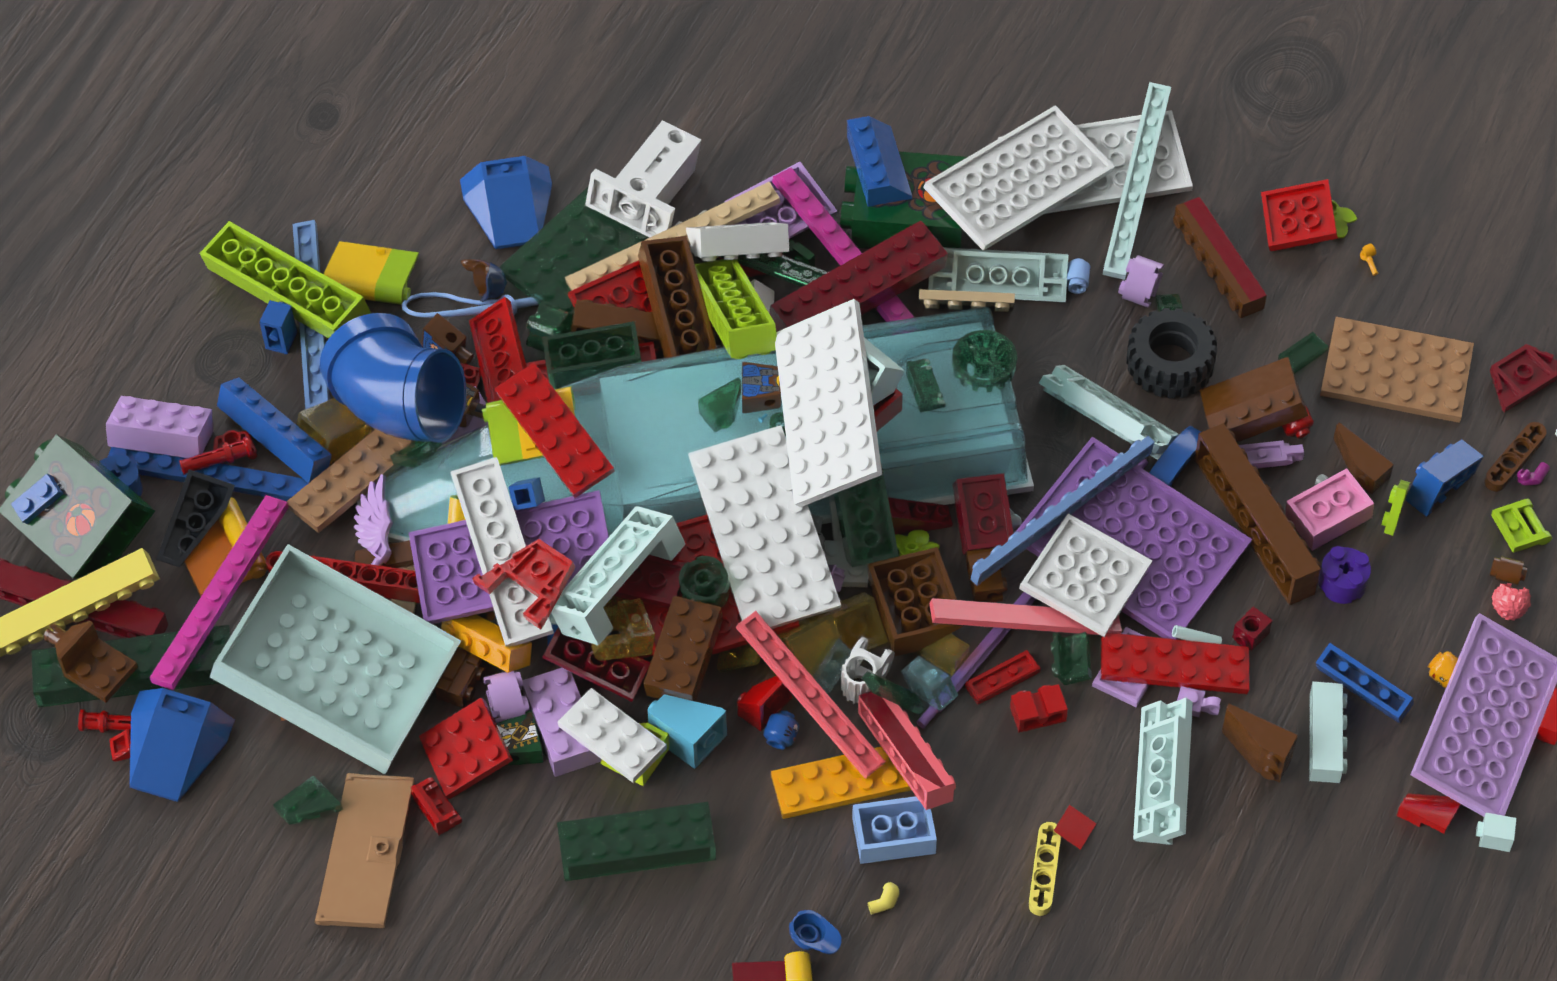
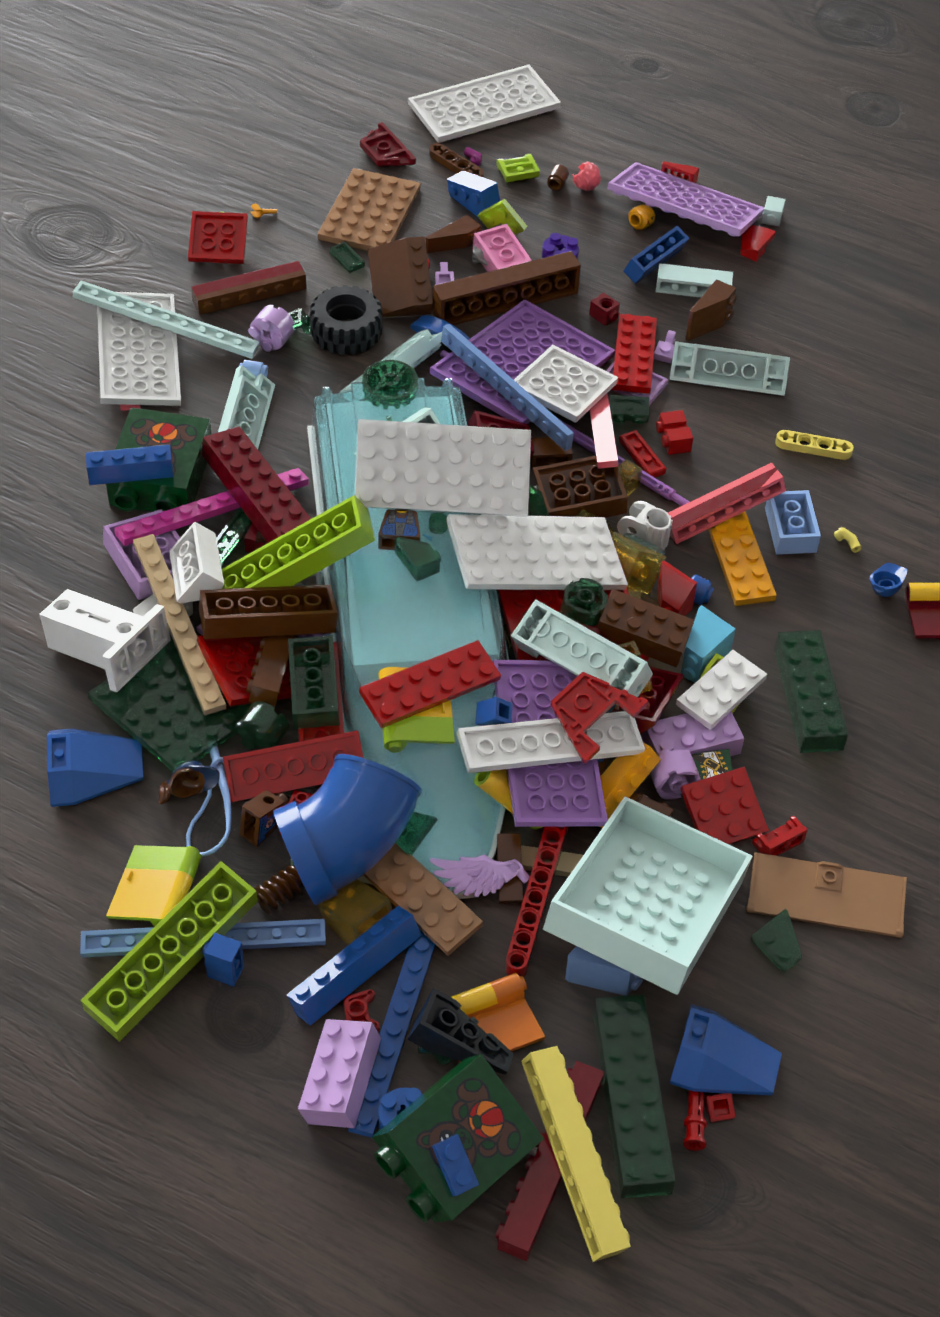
camera: 90 degrees left, 5 degrees down
(90, 660) = (648, 1116): reddish brown plate -> none
(219, 593) = (561, 1003): dark pink plate -> none
(227, 453) = (380, 1008): red pin -> none
(810, 694) = (680, 552): coral tile -> none
(893, 692) = (675, 504): clear green tile -> none
(929, 683) = (659, 486): clear light blue brick -> none
(956, 299) = (297, 411): tan plate -> none
(1018, 177) = (160, 379): white plate -> none
(1074, 827) = (778, 423): red sticker -> none
(1194, 635) = (611, 338): light aqua piece -> none

